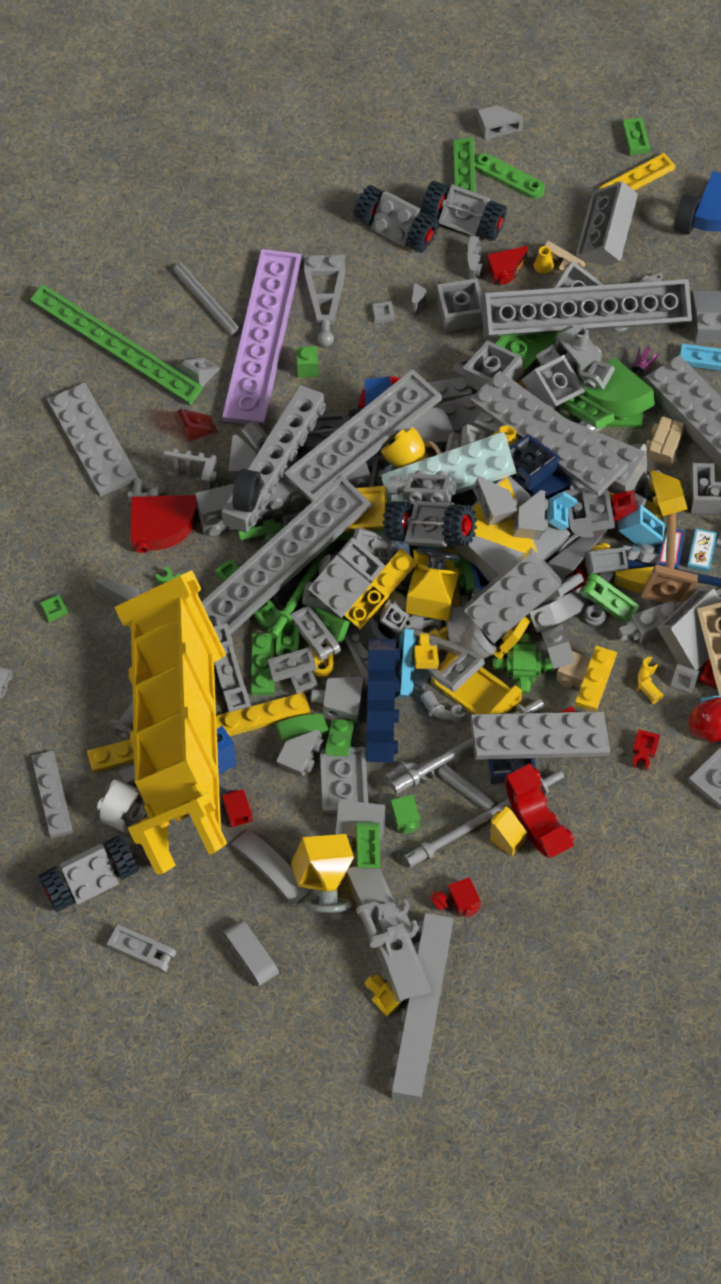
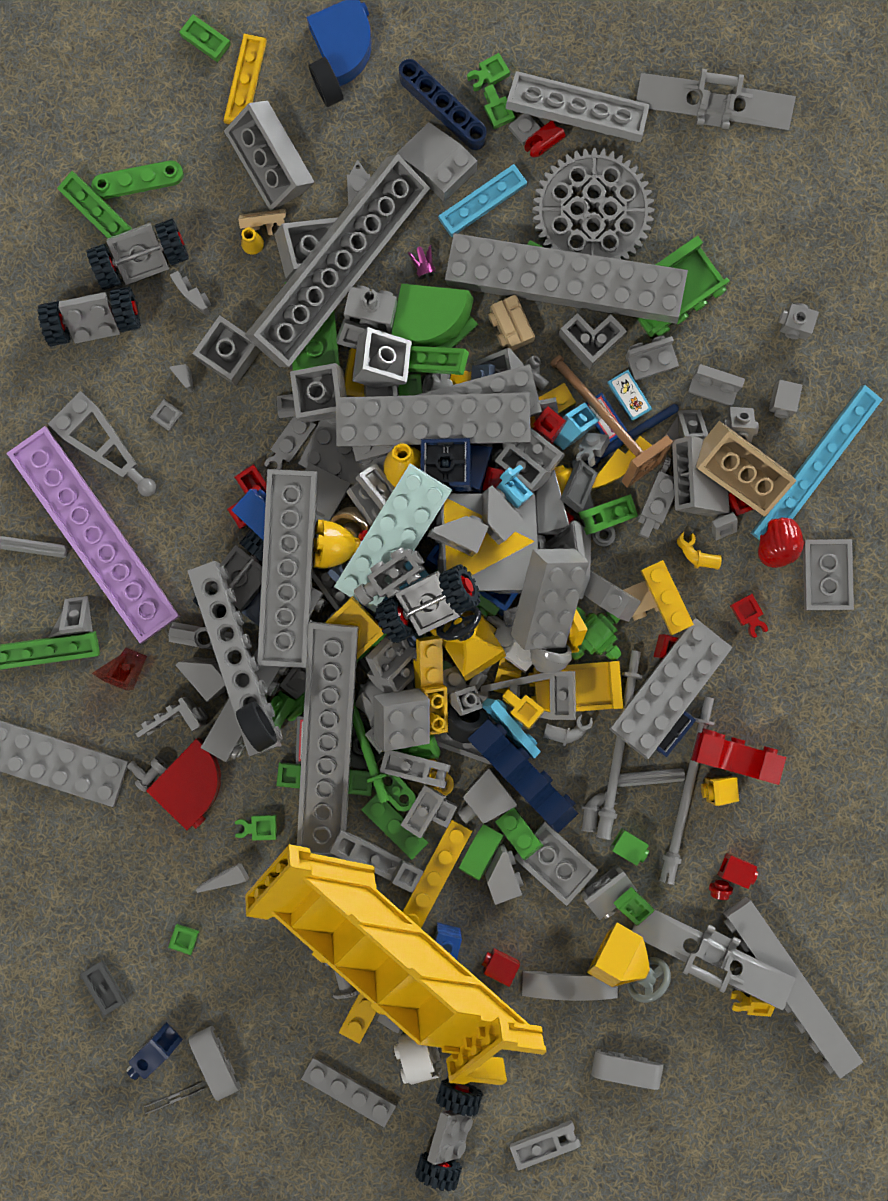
camera: 45 degrees left, 25 degrees up
(307, 361) = (156, 525): bright green brick -> none
(361, 559) = (398, 681): light grey slope -> none
(498, 121) = (75, 133): light grey slope -> none
(506, 264) = (224, 274): red slope -> none
(597, 375) = (410, 318): light grey bracket -> none
(668, 493) = (564, 373): yellow slope -> none

